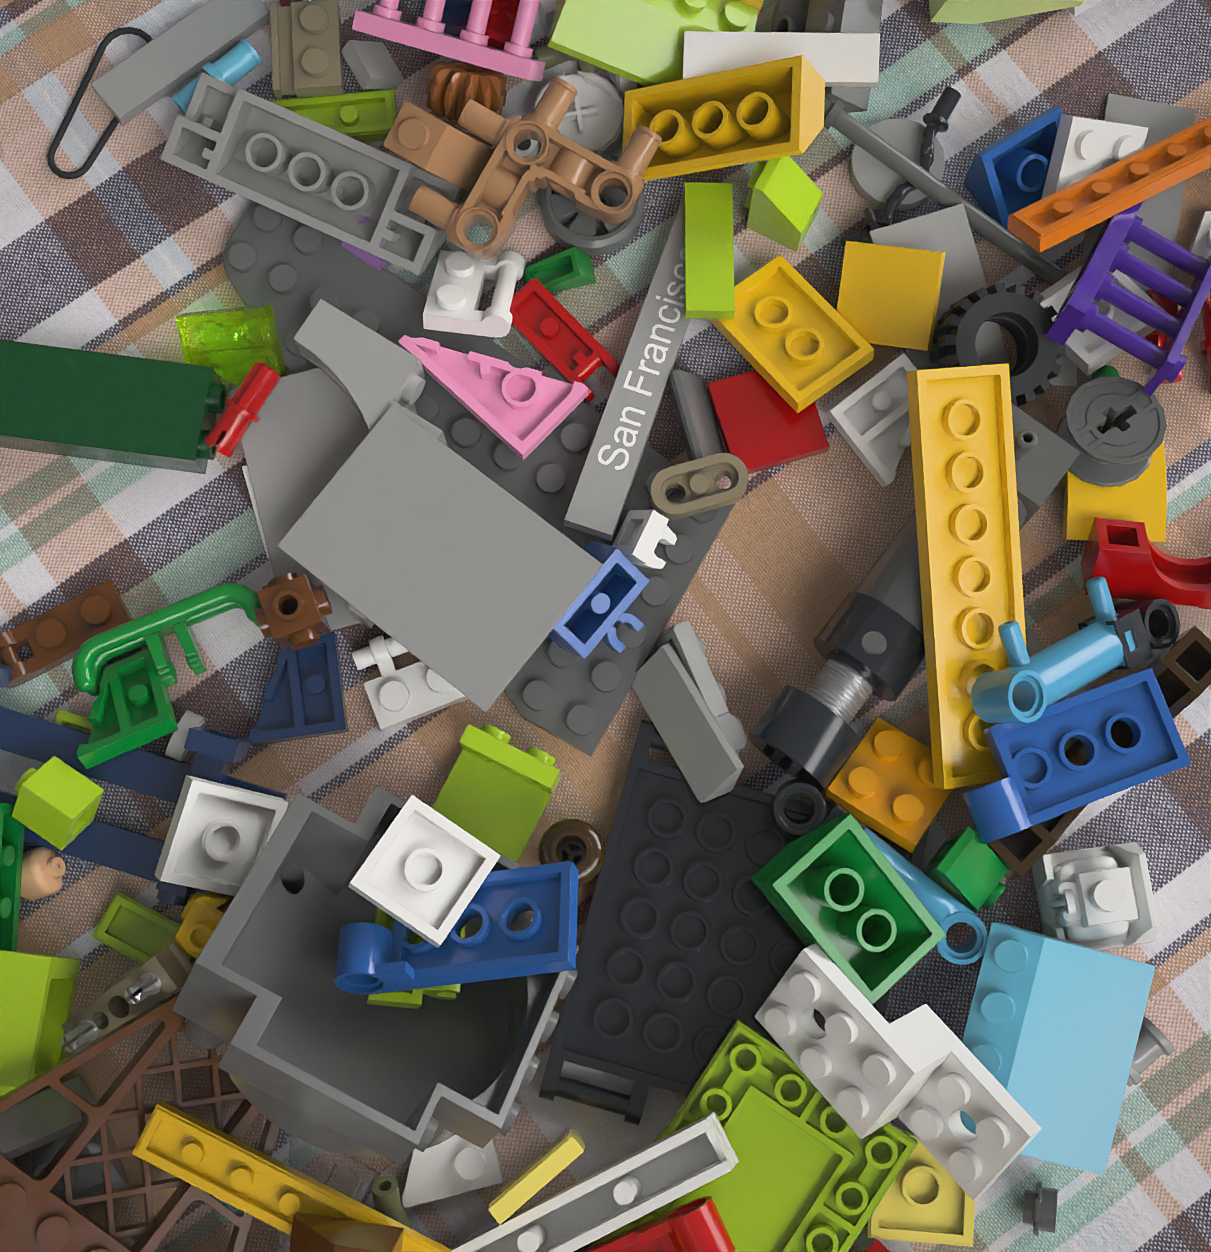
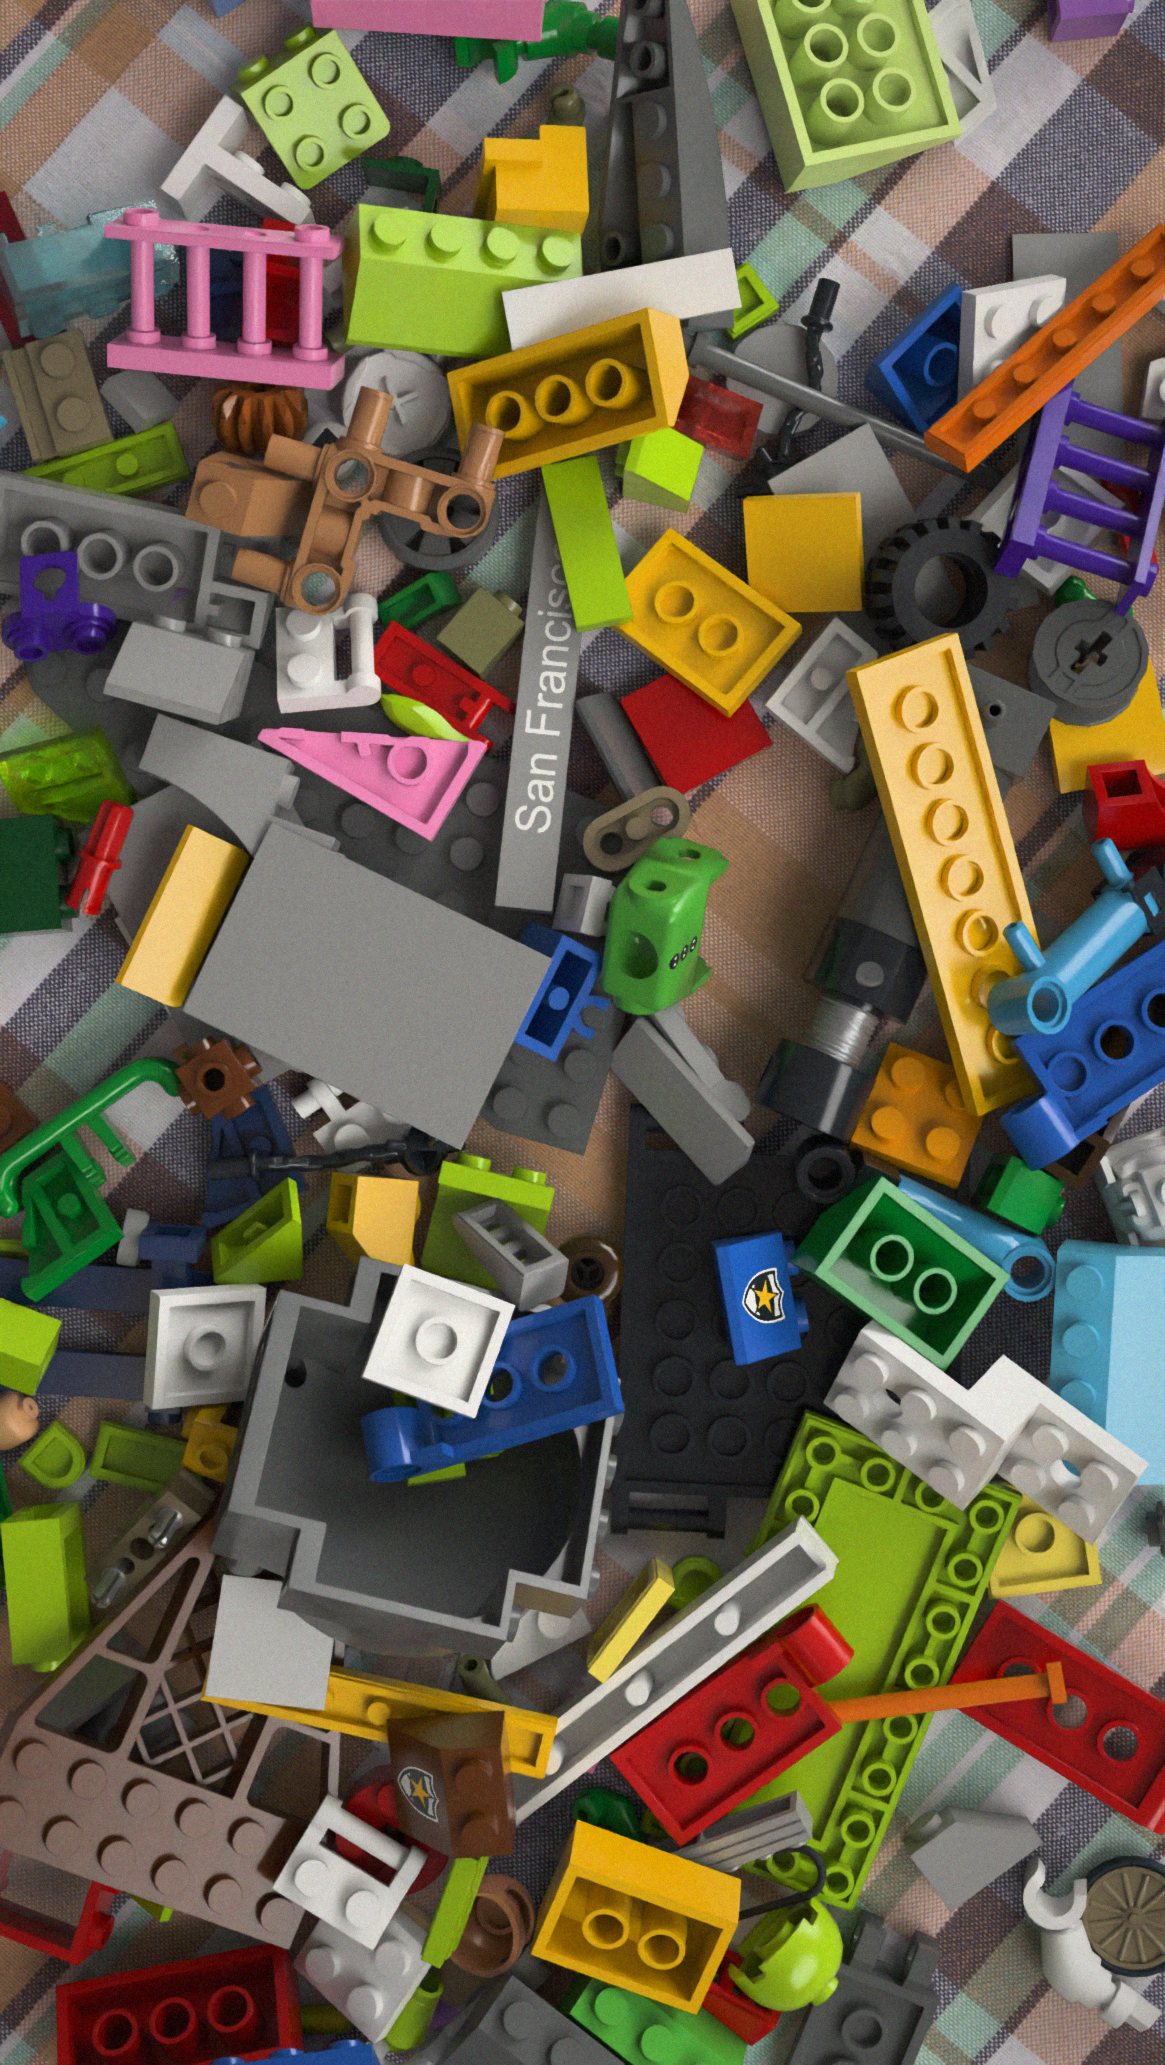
camera: 10 degrees left, 10 degrees up
(68, 915) = (56, 1457): none -> lime tile
(203, 1119) = (266, 1650): none -> white tile
(258, 215) = (58, 622): none -> dark purple bracket
(296, 762) = (262, 1241): none -> lime slope
(297, 471) = (183, 917): none -> yellow slope
(350, 270) = (182, 669): none -> light grey slope
(397, 759) = (373, 1216): none -> yellow slope
(447, 714) = (415, 1150): none -> black piece
(511, 822) = (525, 1282): none -> light grey slope
(534, 356) = (418, 719): none -> lime bar
(598, 1154) = (691, 1578): none -> lime tile
(607, 303) = (483, 632): none -> olive brick
(699, 565) = (659, 926): none -> bright green piece
(717, 903) = (758, 1296): none -> blue slope
(836, 173) = (718, 418): none -> clear red slope
(884, 100) = (756, 303): none -> lime tile
(897, 496) = (858, 788): none -> olive arm

